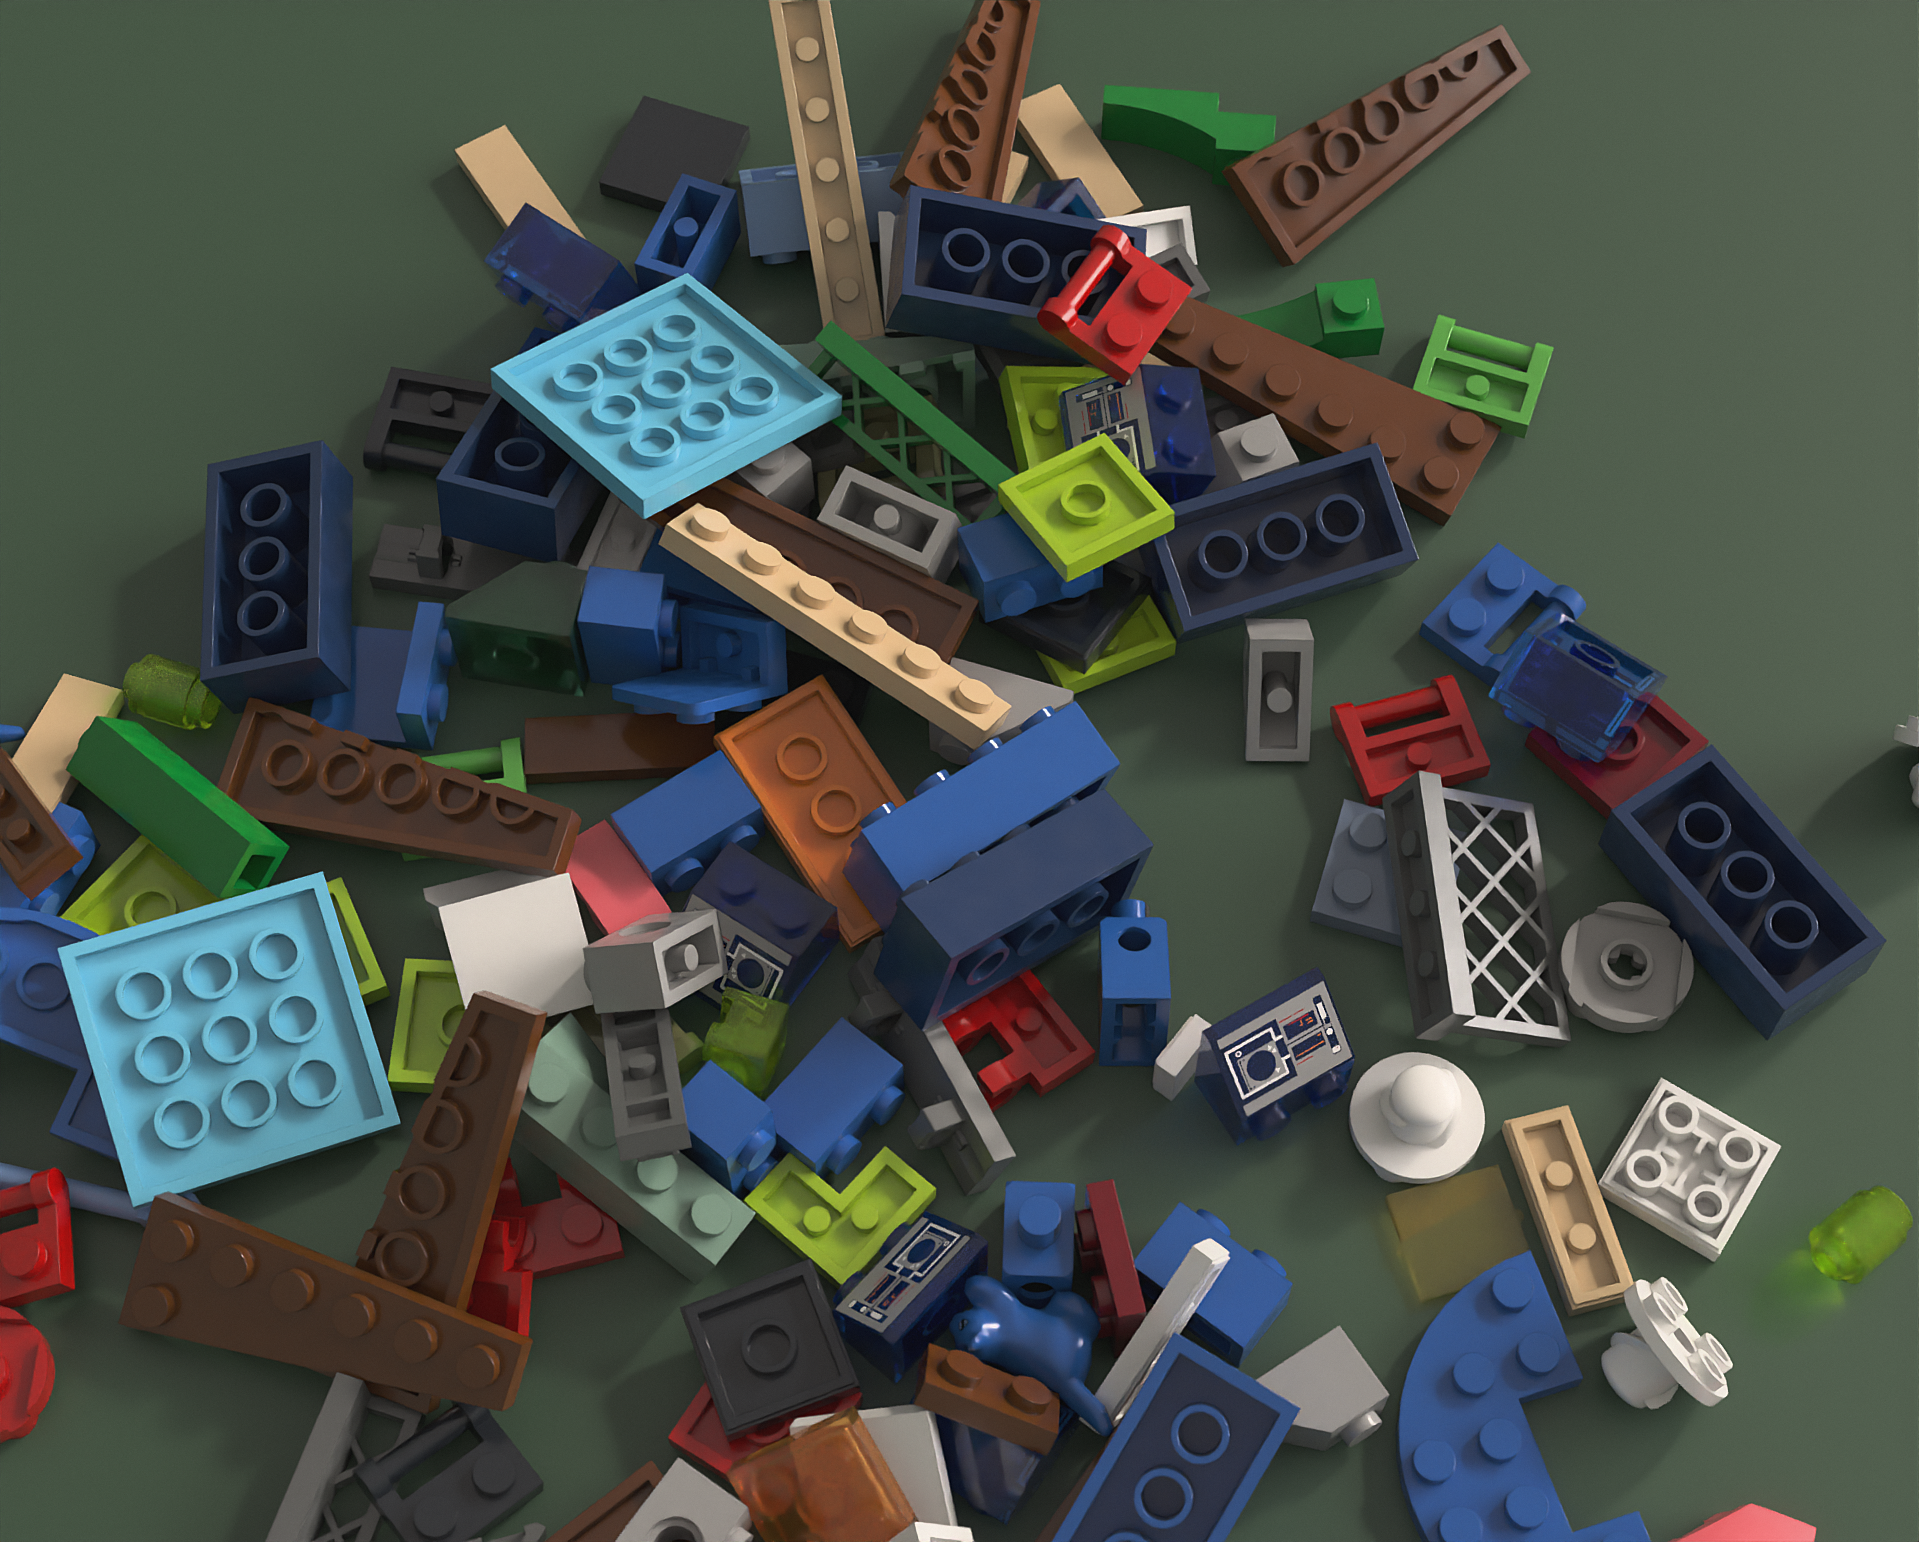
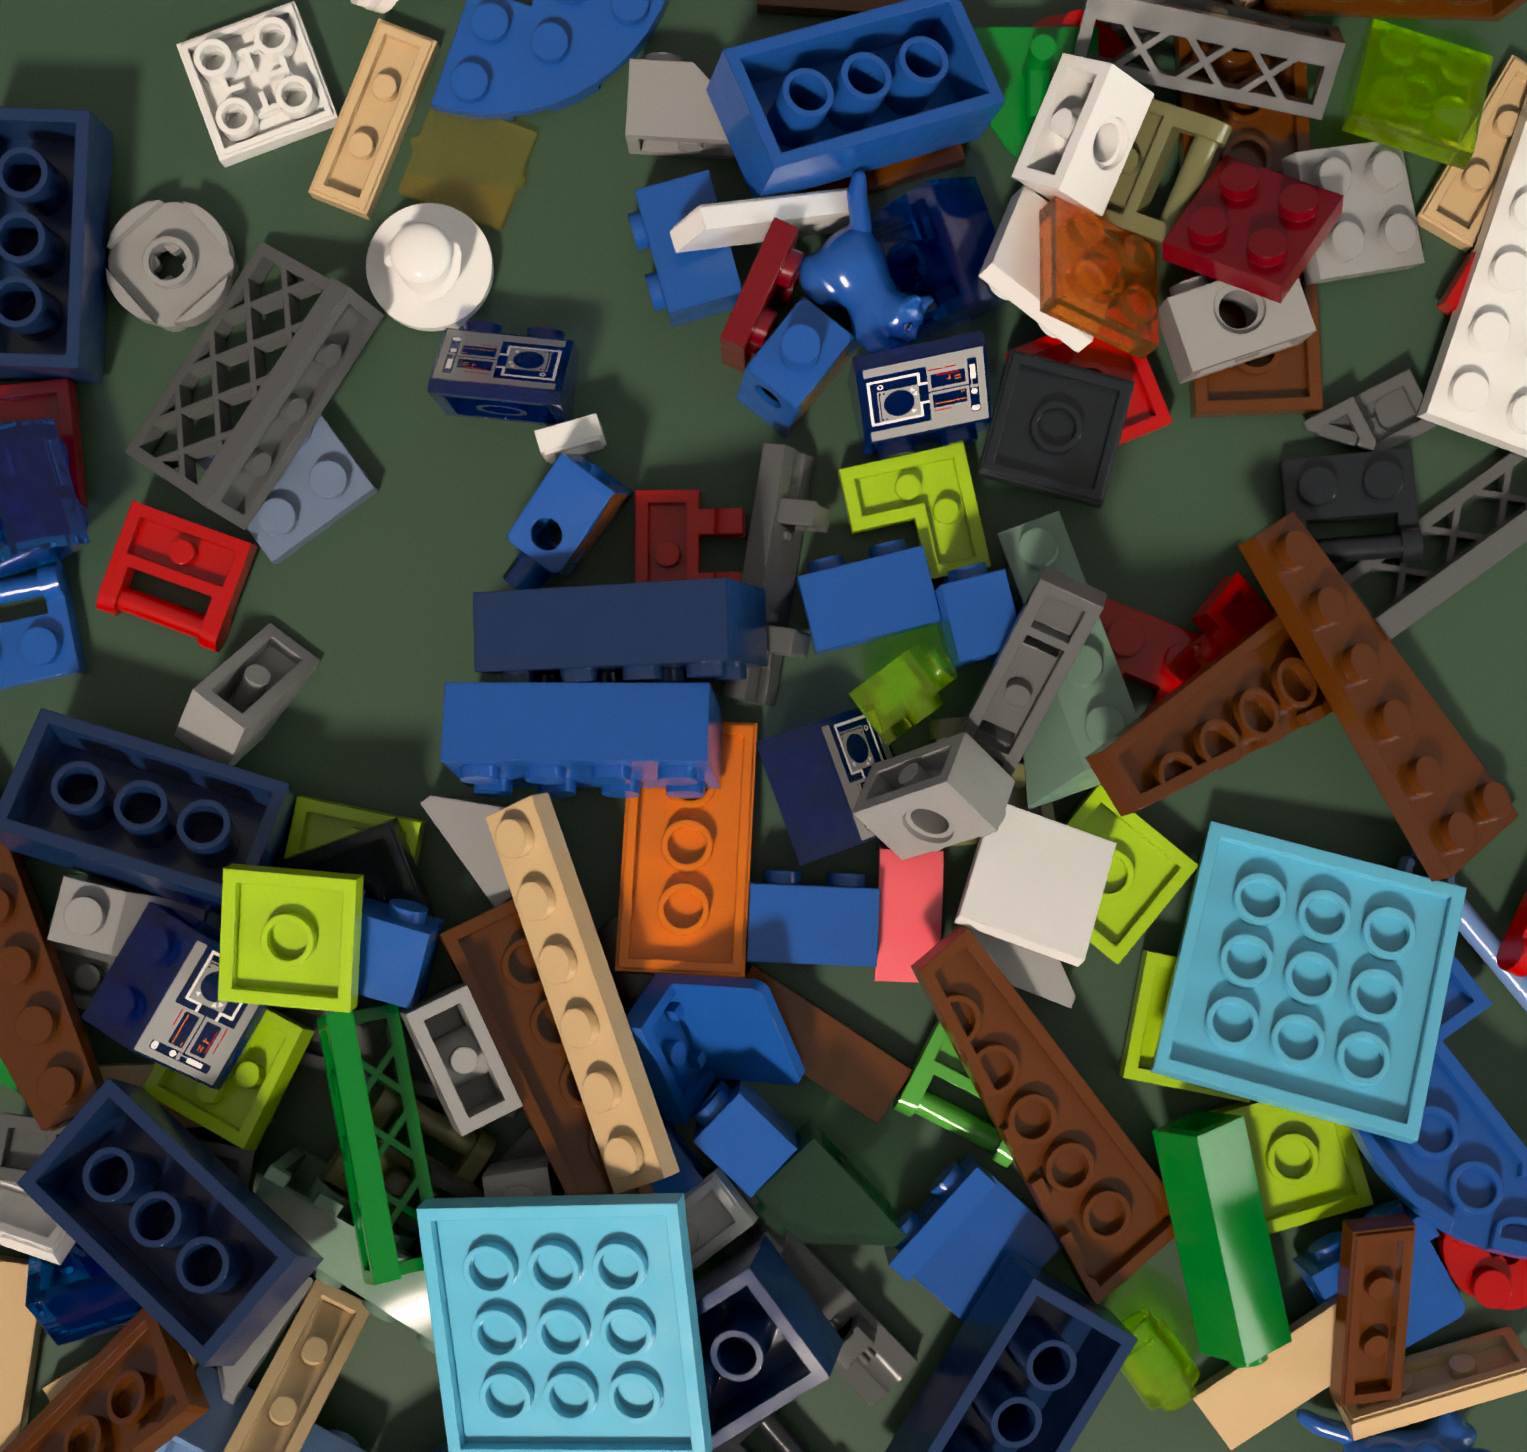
camera: 145 degrees left, 25 degrees up
(987, 1398) = (934, 252): reddish brown plate -> none
(1131, 316) = (104, 1098): red plate -> none

